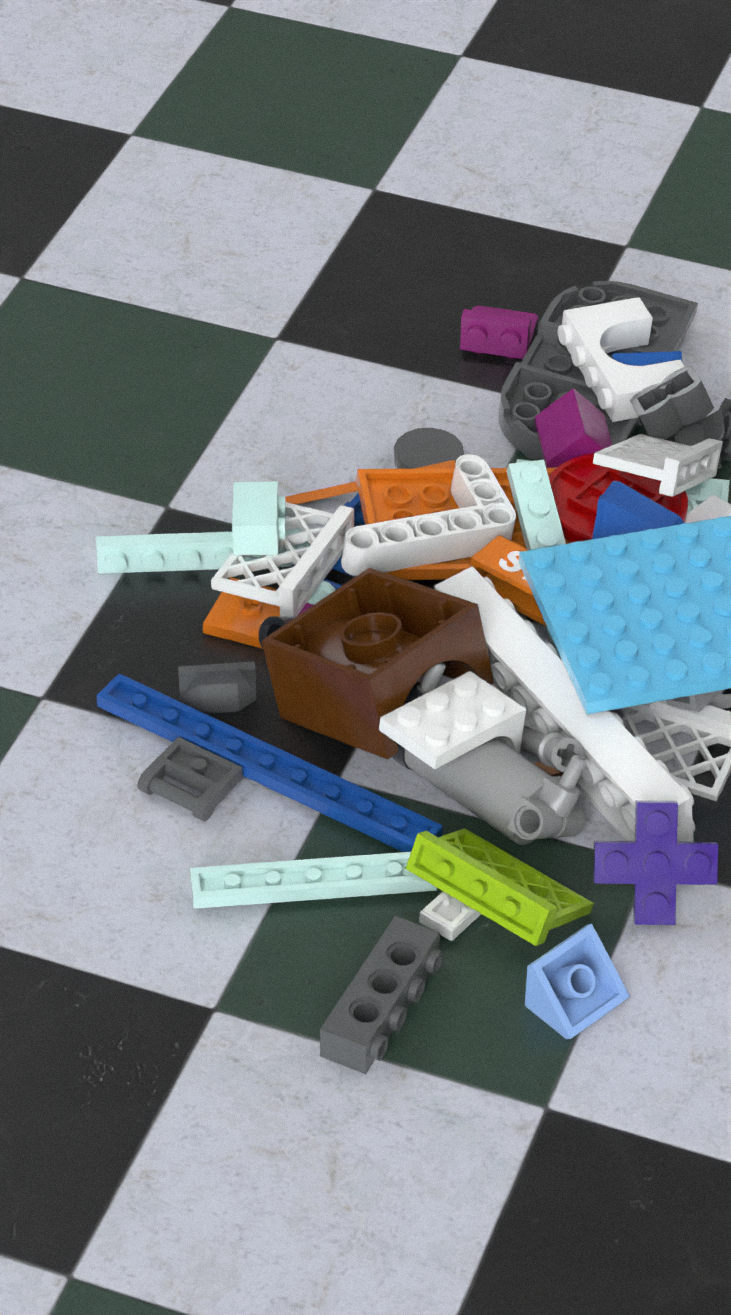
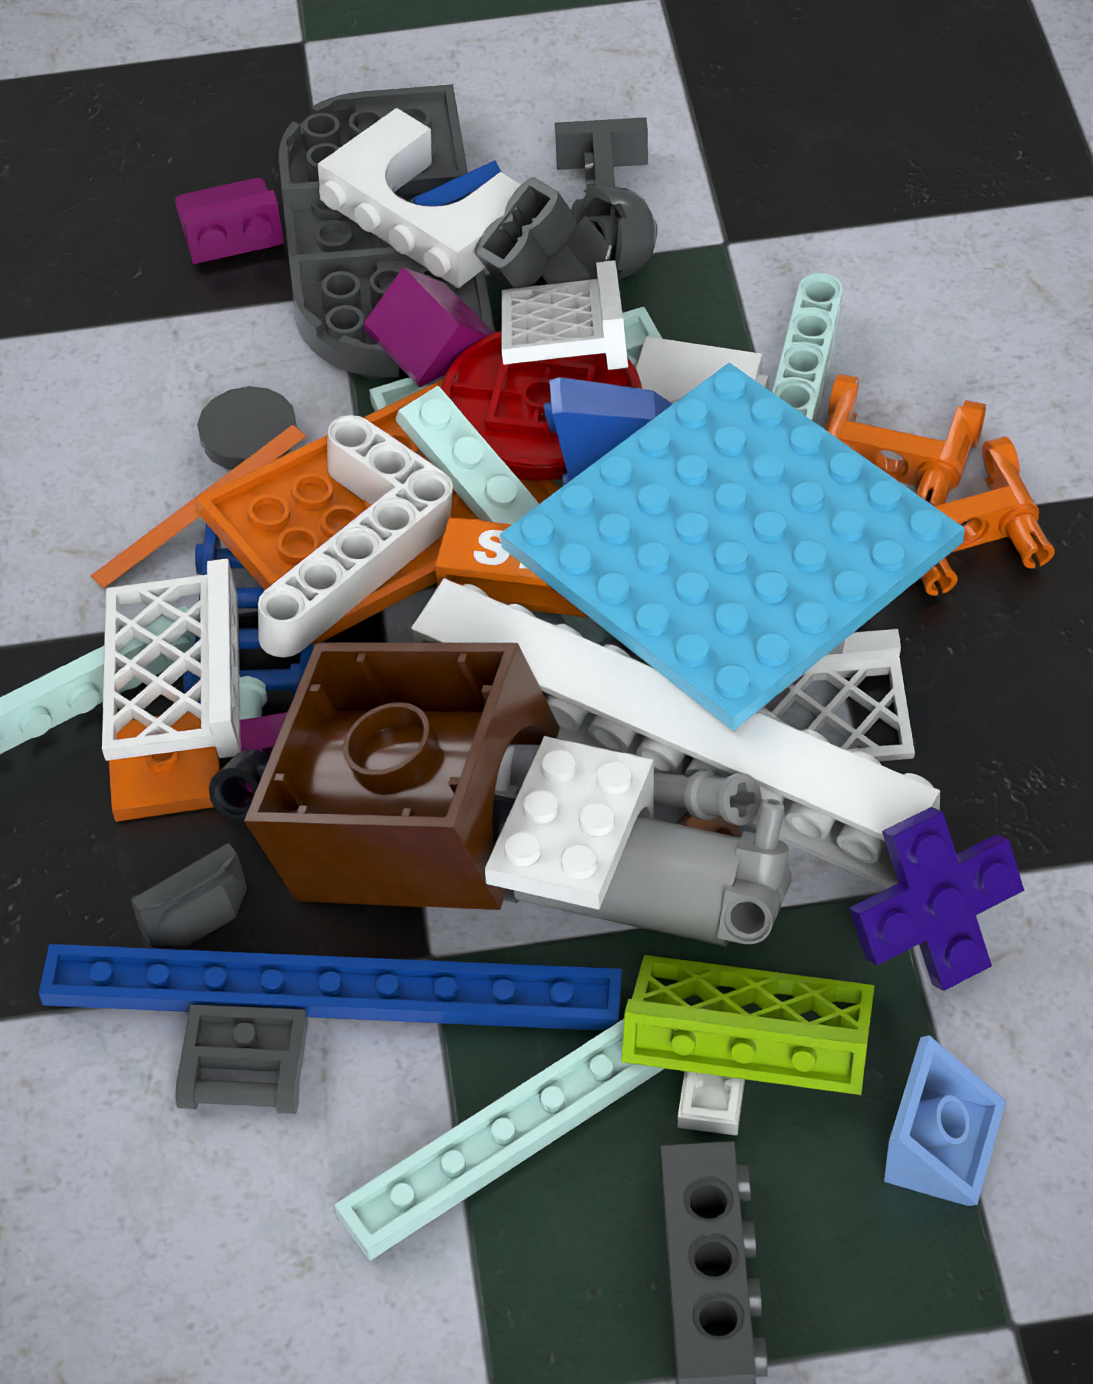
camera: 25 degrees left, 10 degrees up
(257, 518) = (112, 631): light aqua brick -> none

